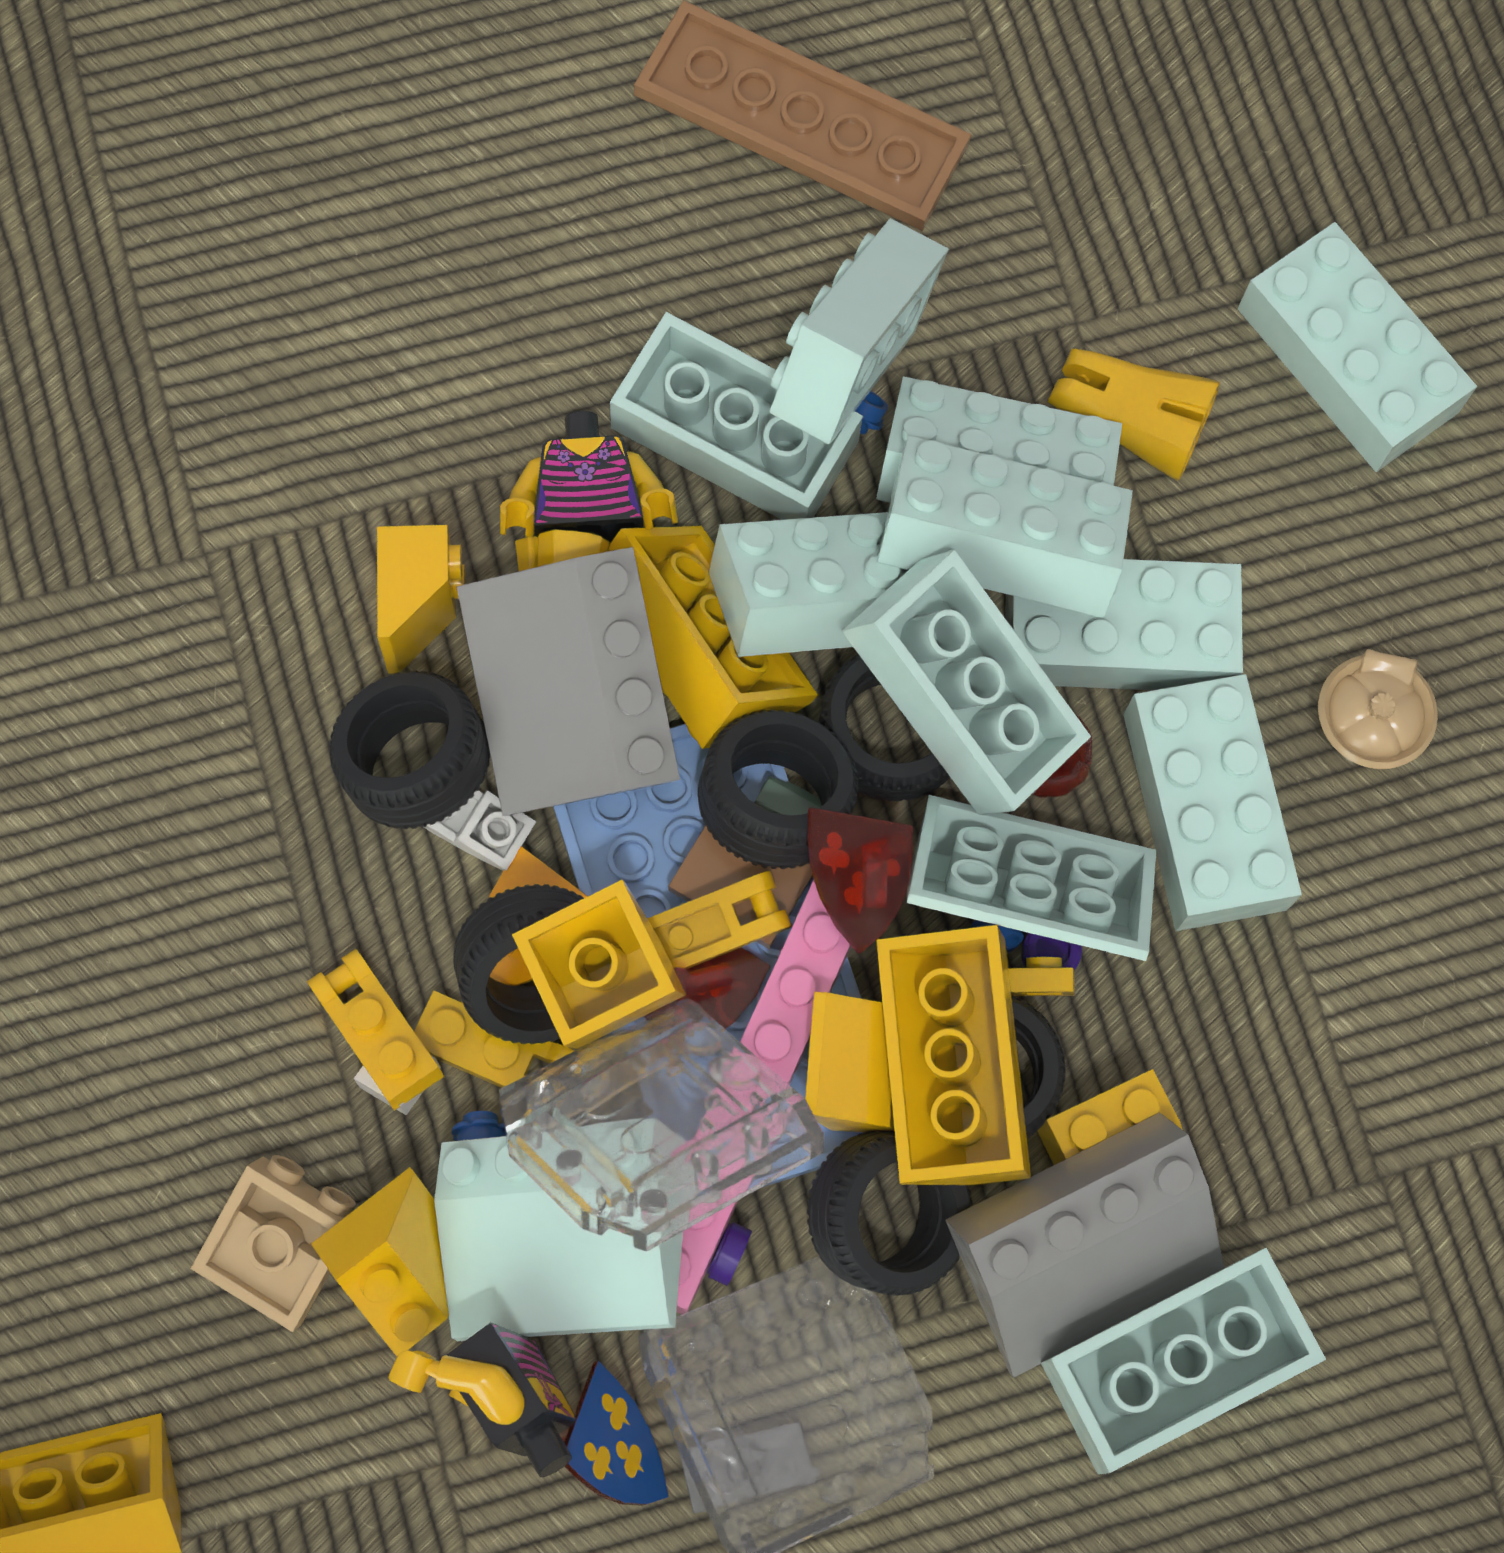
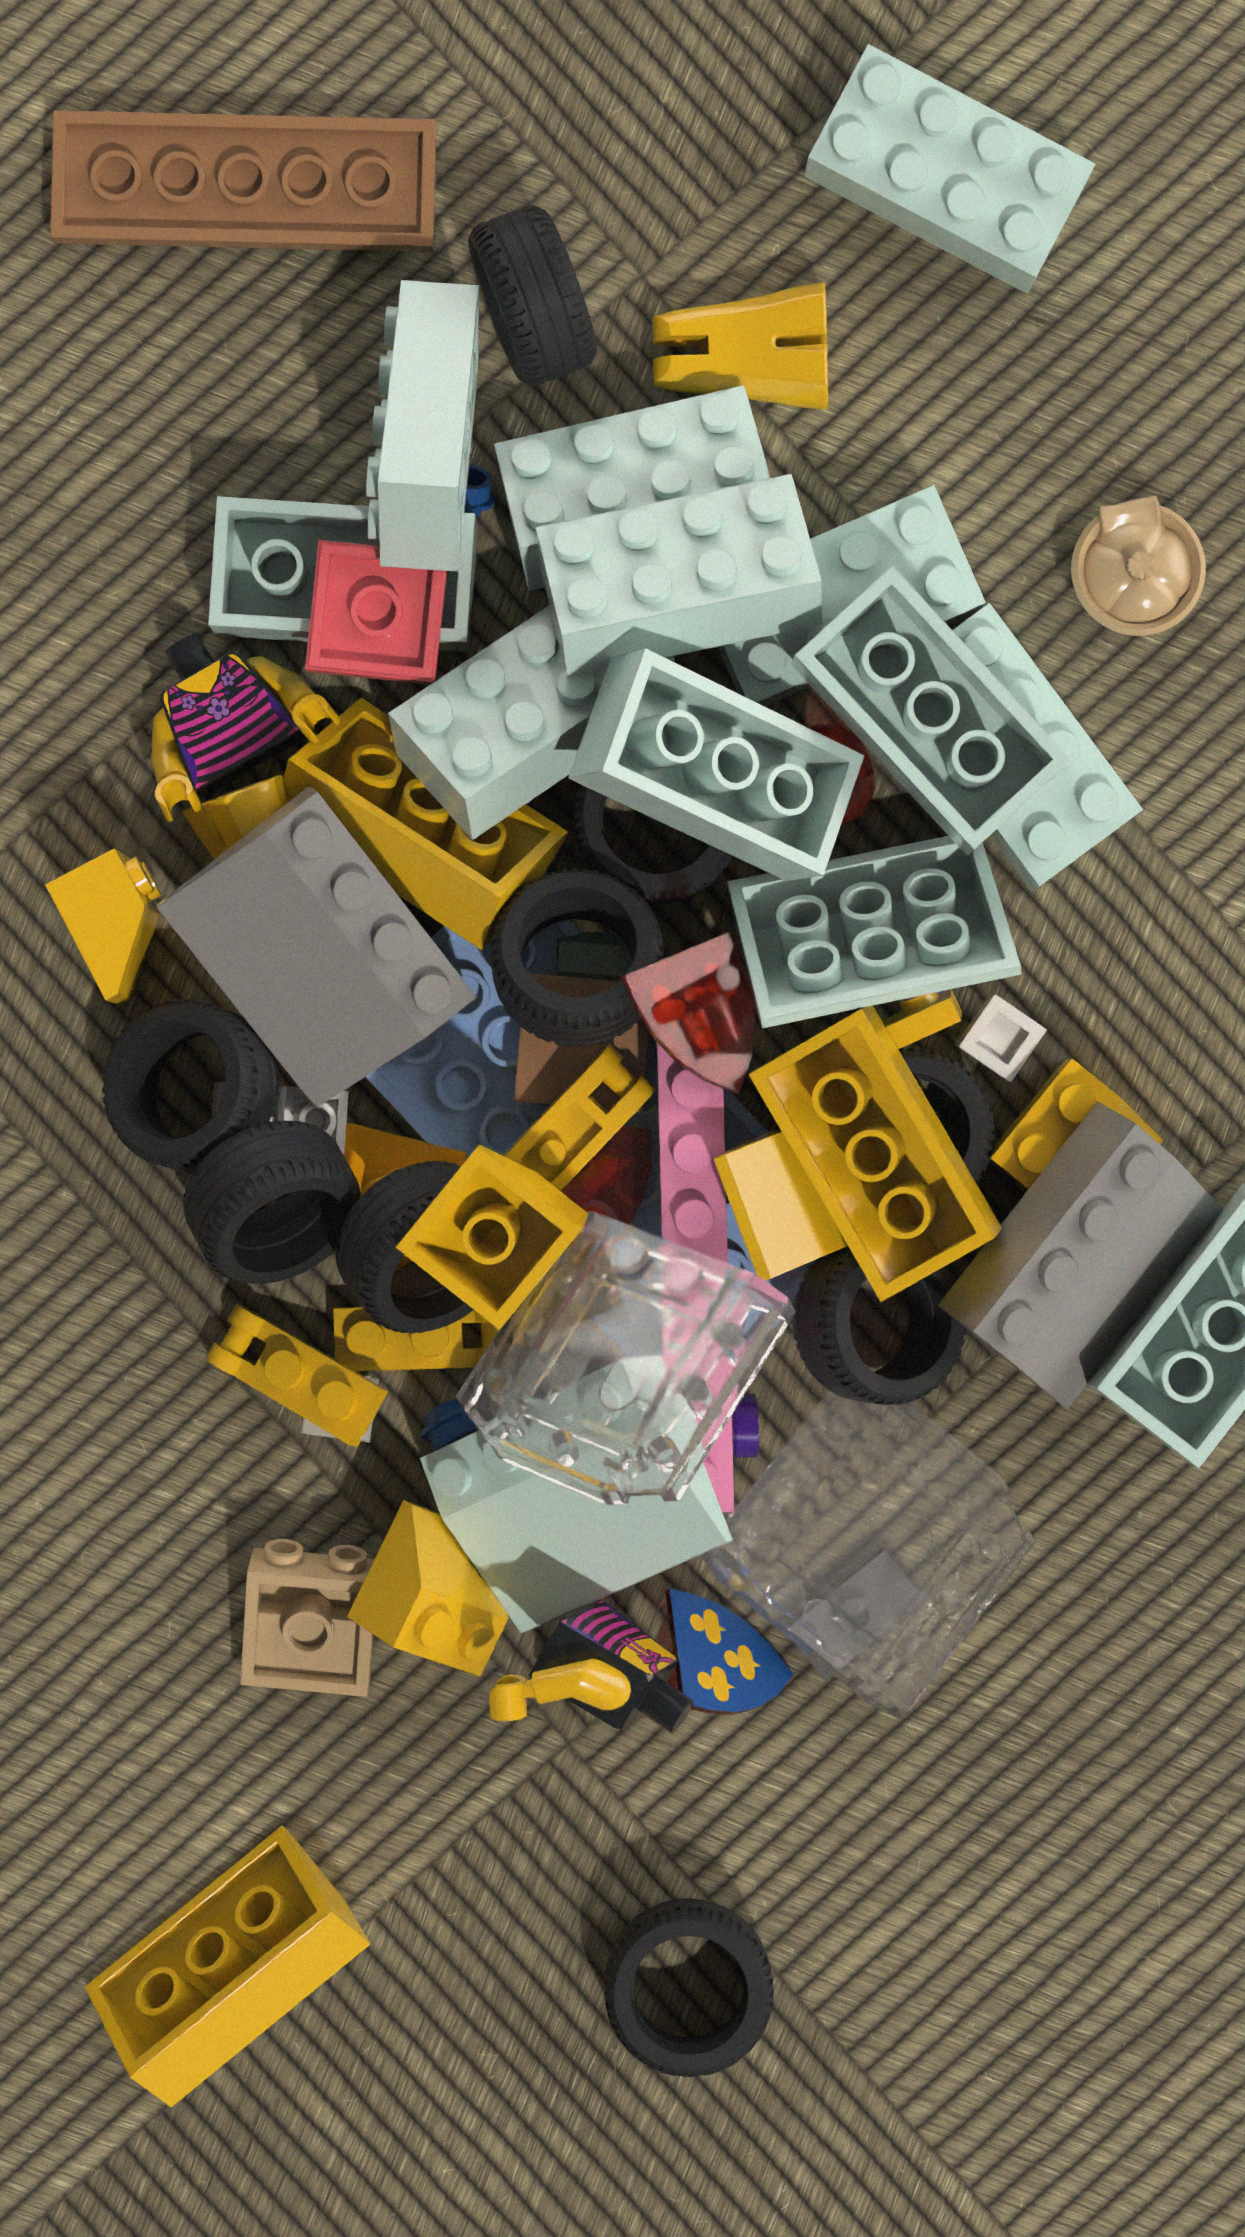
camera: 25 degrees left, 15 degrees up
(420, 826) = (251, 1172): none -> black tyre
(745, 452) = (374, 616): none -> coral tile
(987, 281) = (532, 295): none -> black tyre
(1098, 1032) = (1001, 1037): none -> white plate
(1162, 723) = (930, 710): none -> light aqua brick

